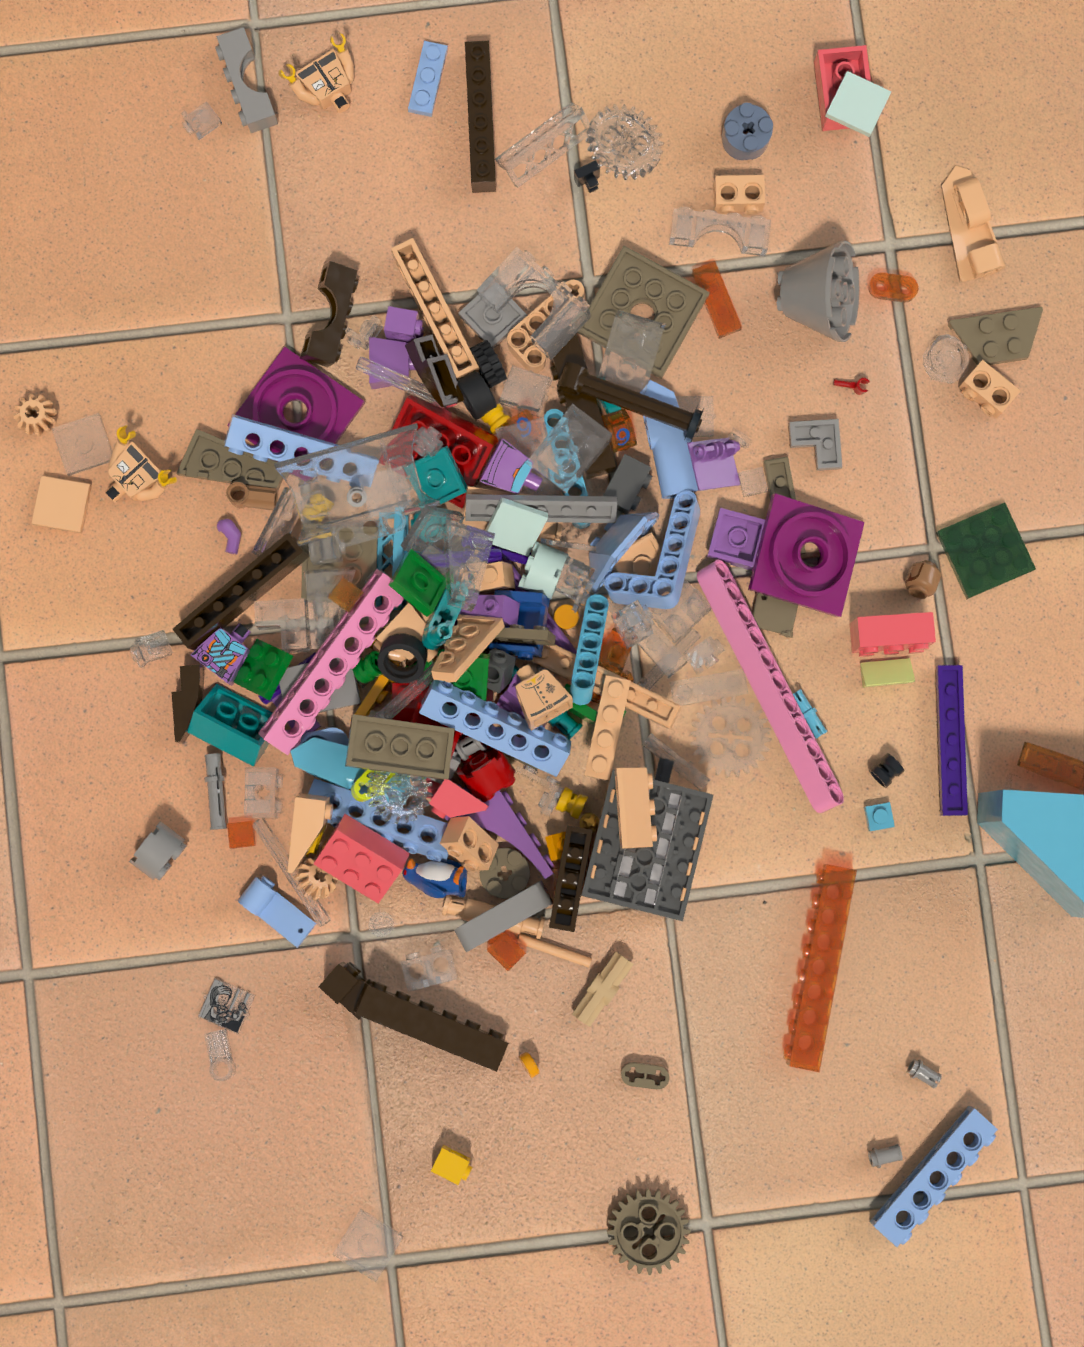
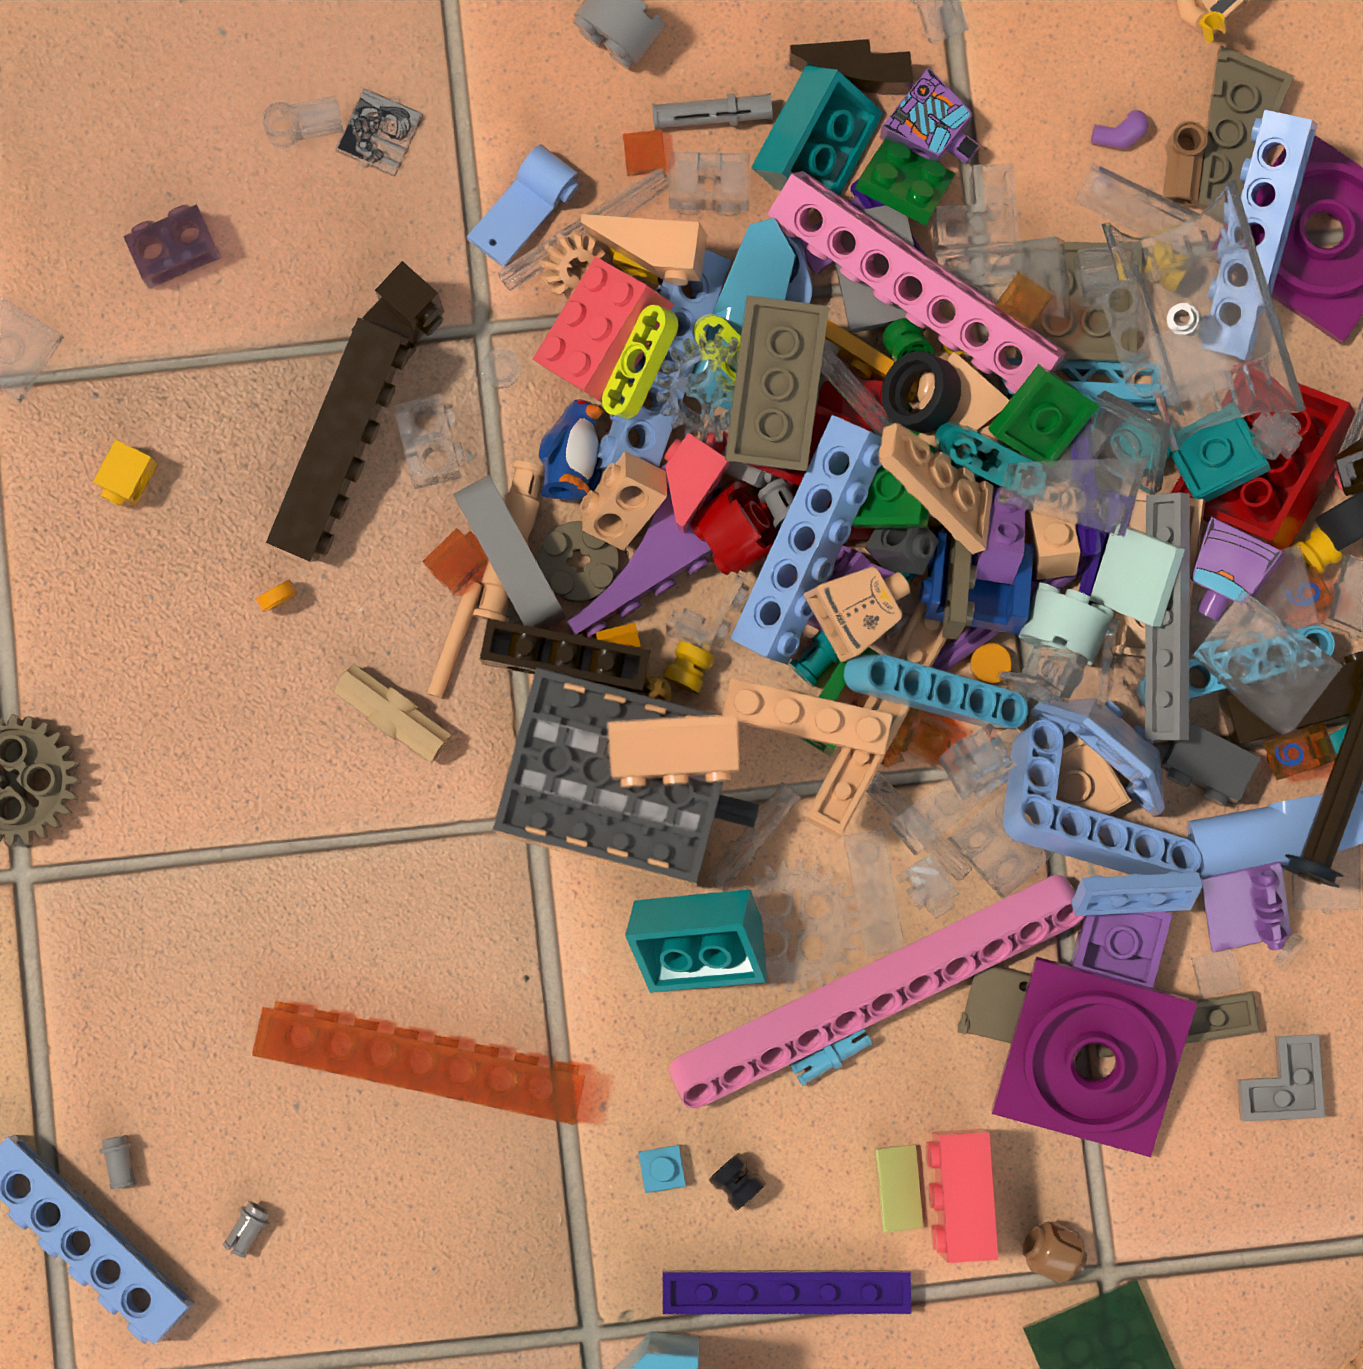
camera: 90 degrees right, 0 degrees up
(241, 591) = (1030, 144): dark brown brick -> none
(308, 1136) = (175, 255): none -> brick
(386, 843) = (661, 340): none -> neon yellow beam
(644, 1082) = (265, 779): dark tan beam -> none
(709, 528) = (1136, 893): none -> light blue plate
(742, 795) = (698, 940): none -> teal slope

